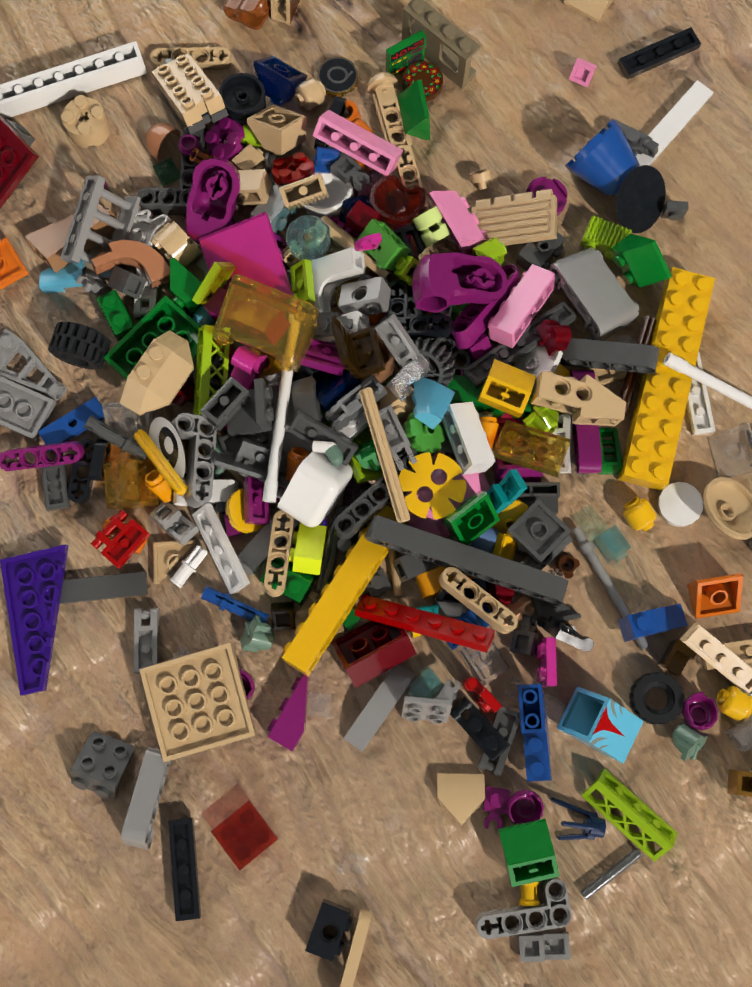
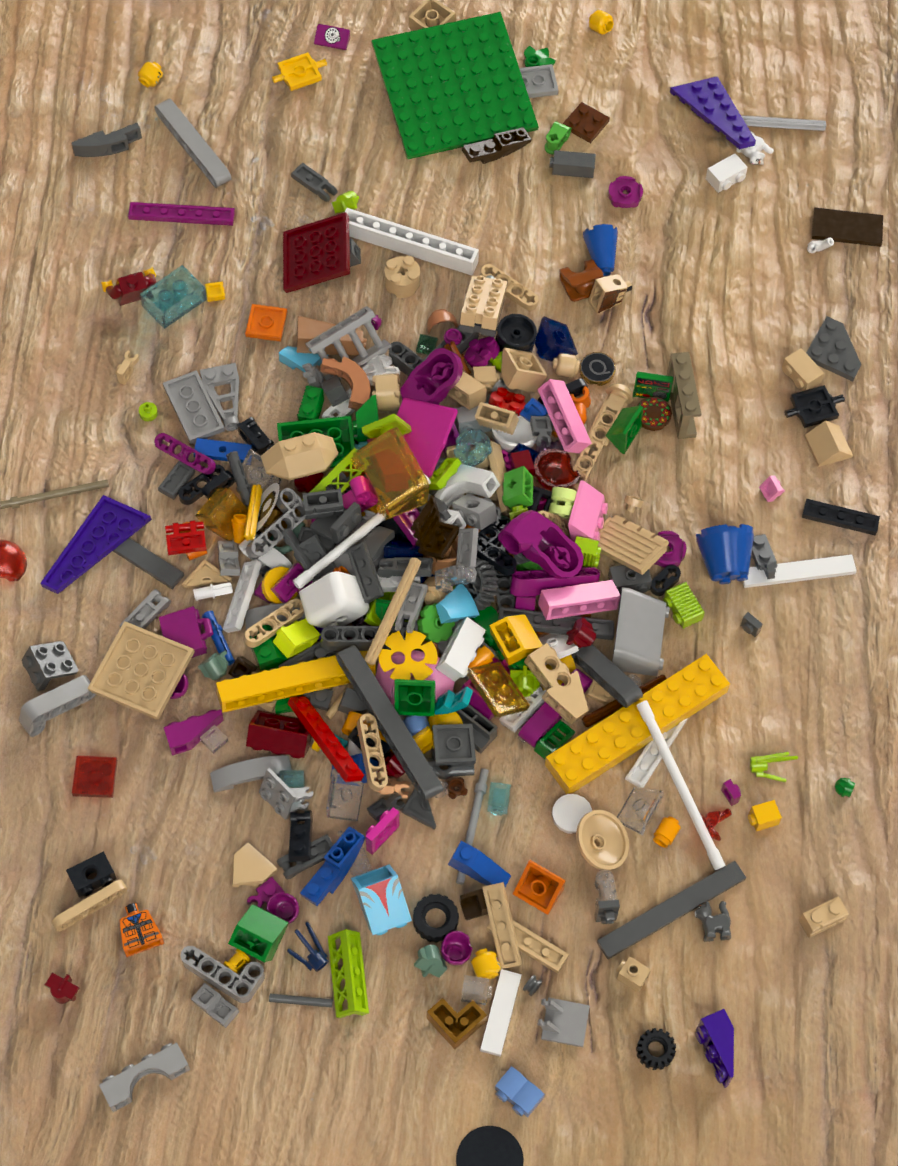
camera: 40 degrees right, 15 degrees down
(79, 345) = (269, 405): black tyre -> none
(92, 386) = (254, 436): none -> black hinge
(184, 869) = (40, 765): black plate -> none
(201, 628) = (186, 629): none -> magenta piece
(331, 451) = (362, 582): arm -> none
(368, 242) = (505, 476): dark pink tile -> none
(419, 942) = (139, 931): none -> orange torso
(486, 700) = (319, 817): red plate -> none
(563, 227) = (668, 583): none -> black beam
(565, 633) = (408, 816): black plate -> none
(639, 514) = (536, 795): yellow head -> none
(640, 199) = (728, 596): black sticker -> none
(640, 261) = (687, 633): green slope -> none

